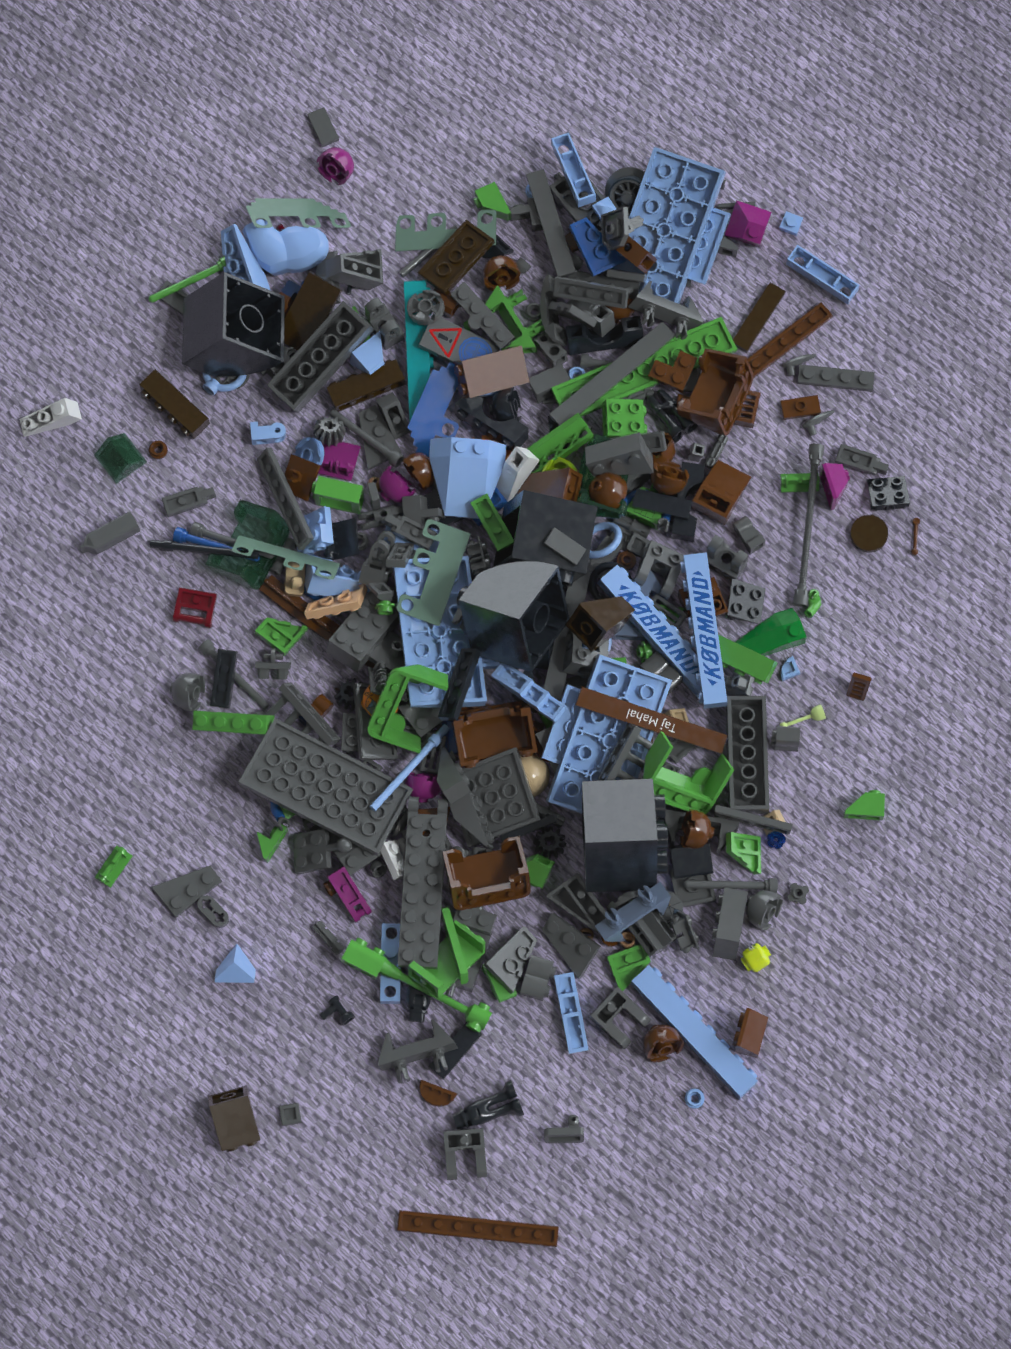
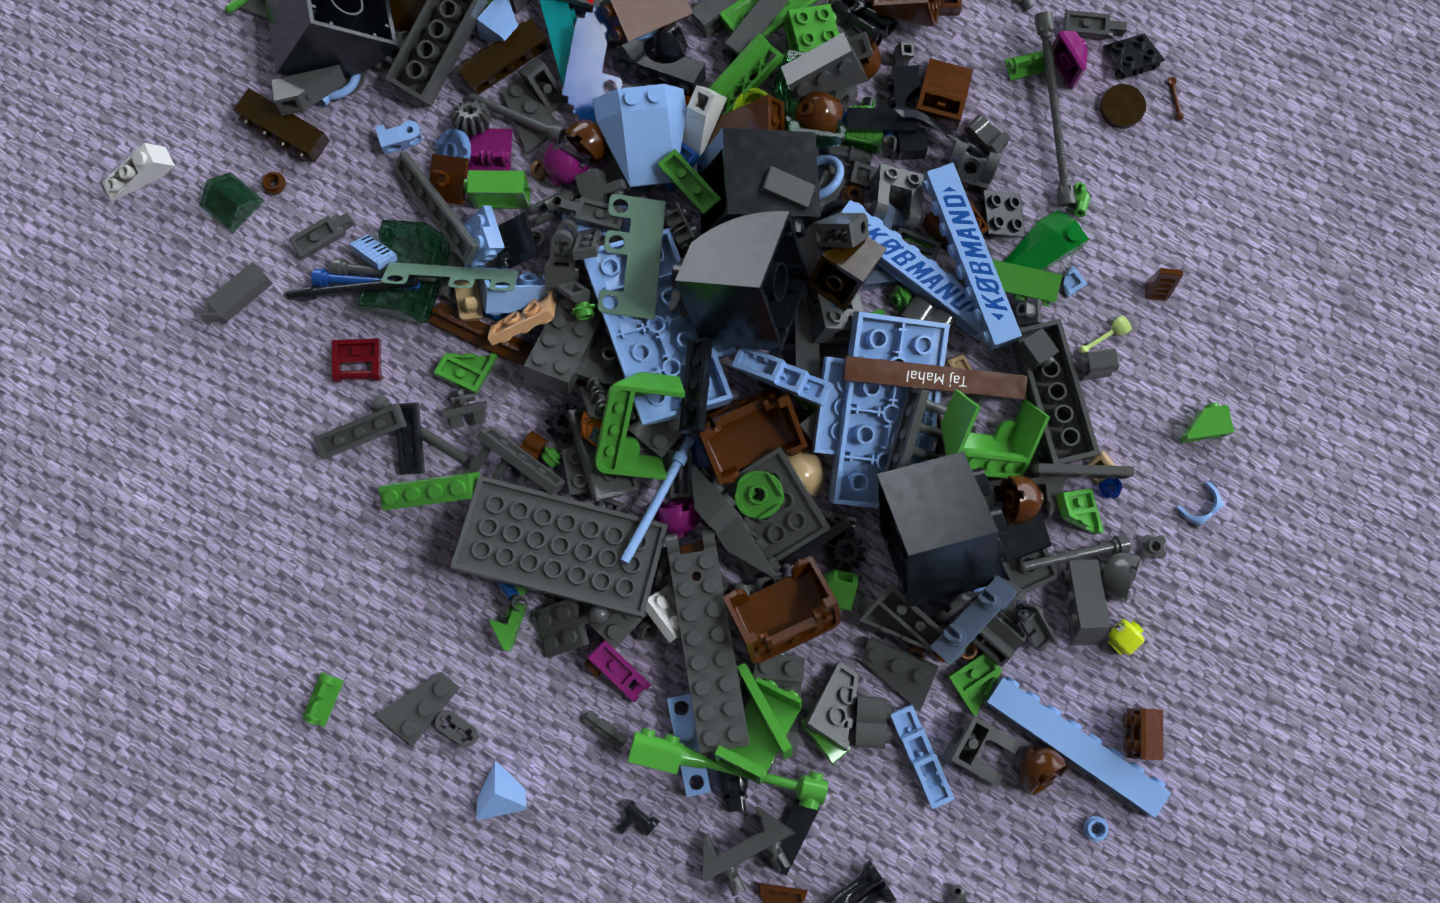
camera: 15 degrees left, 5 degrees up
(186, 691) = (367, 463): dark grey cylinder -> none
(189, 663) = (360, 431): none -> dark grey plate
(199, 381) = (303, 90): none -> dark grey slope
(227, 523) = (373, 252): none -> light blue tile
(333, 717) = (551, 456): none -> bright green plate
(374, 497) = (540, 181): dark grey tile -> none
(480, 777) = (746, 490): none -> bright green plate
(609, 587) = (849, 228): none -> dark grey torso
(668, 478) = (883, 89): reddish brown cylinder -> none
(680, 502) = (906, 111): none -> black sword
(716, 451) = (925, 48): dark grey axle -> none
(739, 715) = (1039, 349): none -> dark grey brick
(844, 880) = (1199, 520): none -> light blue cap

